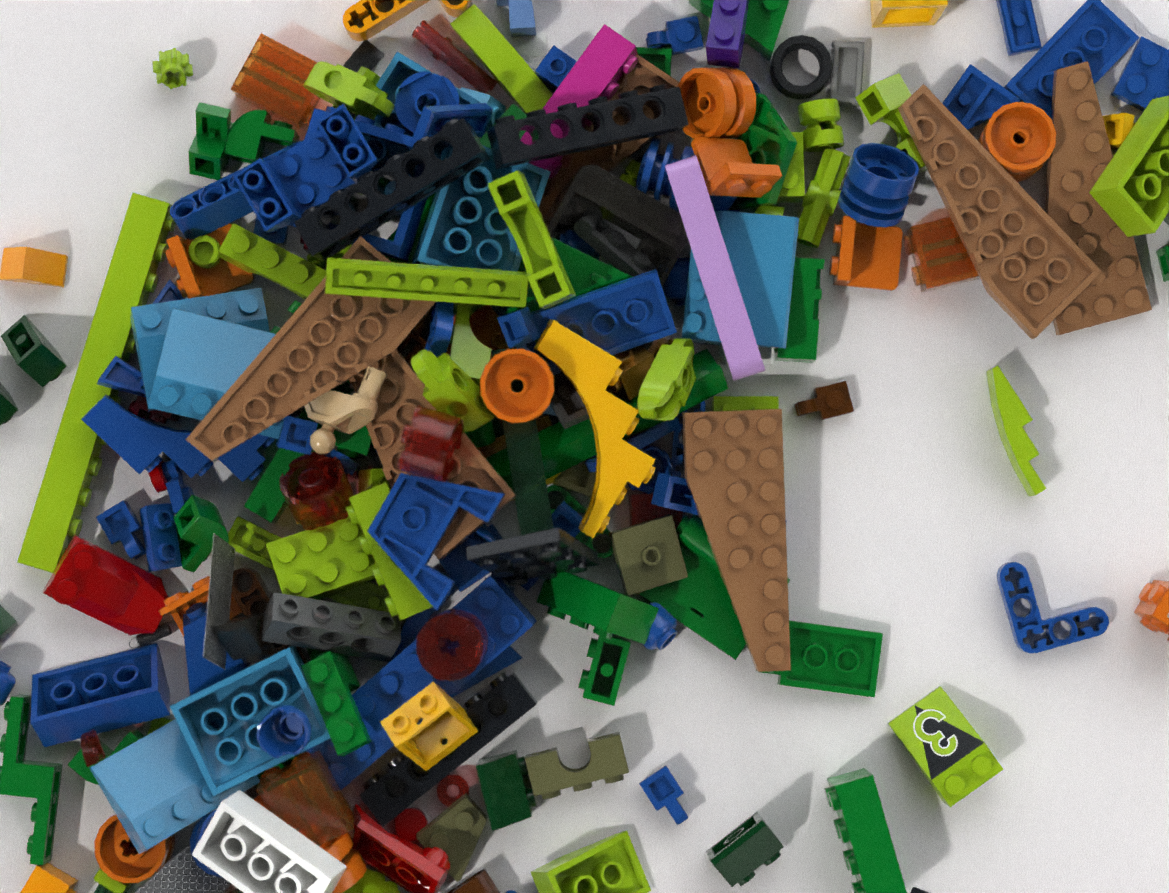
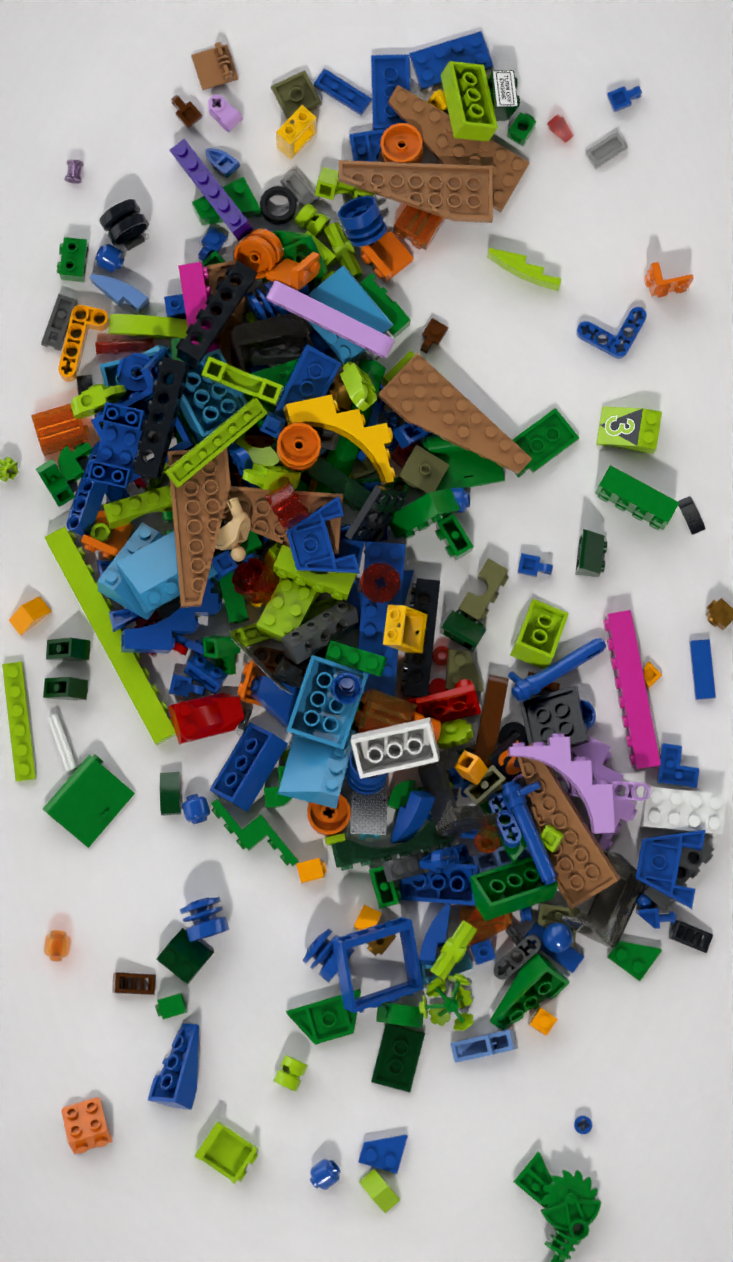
camera: 55 degrees left, 5 degrees down
(91, 748) = (269, 787): clear red tile -> none

